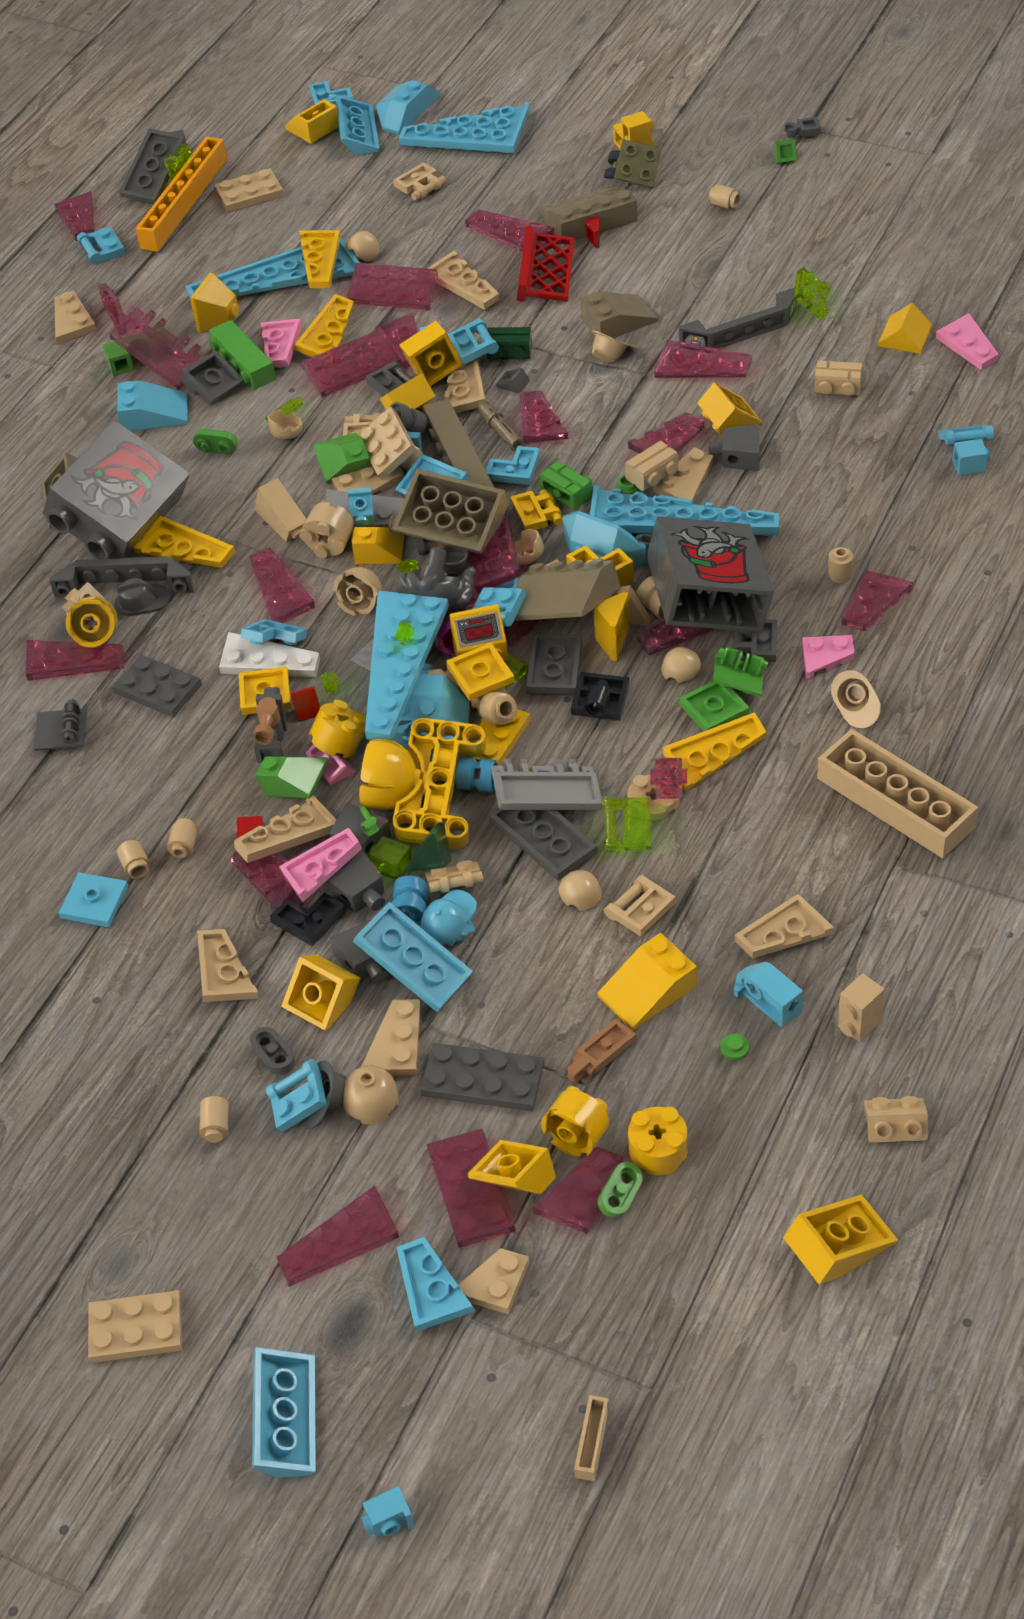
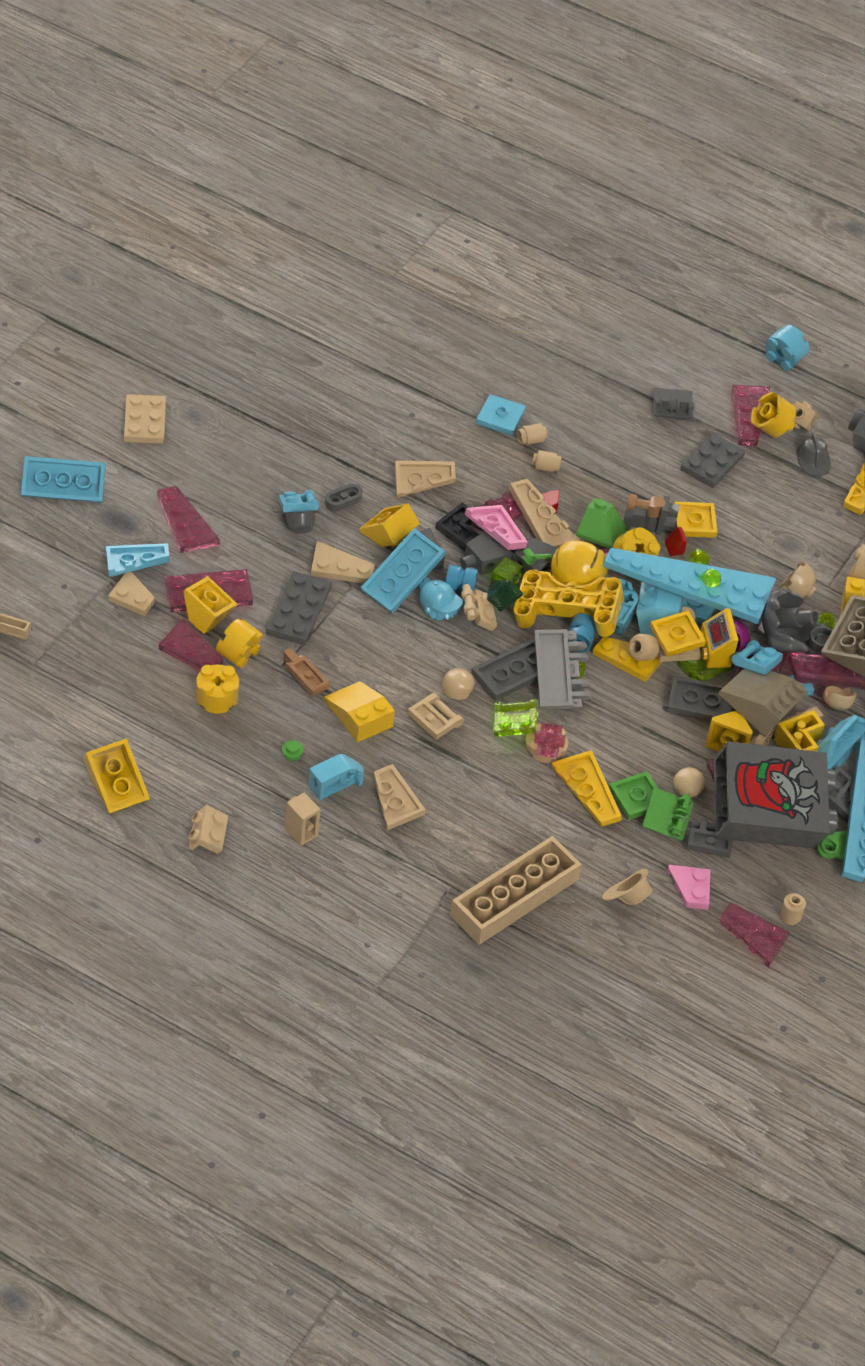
camera: 85 degrees right, 0 degrees up
(120, 570) = (835, 413): dark grey slope -> none
(214, 1119) = (291, 462): tan brick -> none
(243, 656) = (735, 523): white wing -> none
(270, 630) = (760, 525): medium azure plate -> none
(279, 588) = (814, 540): clear pink wing -> none
(370, 1094) = (295, 544): tan cylinder -> none
(600, 696) = (659, 724): black plate -> none
(618, 1191) = (185, 664): bright green plate -> none

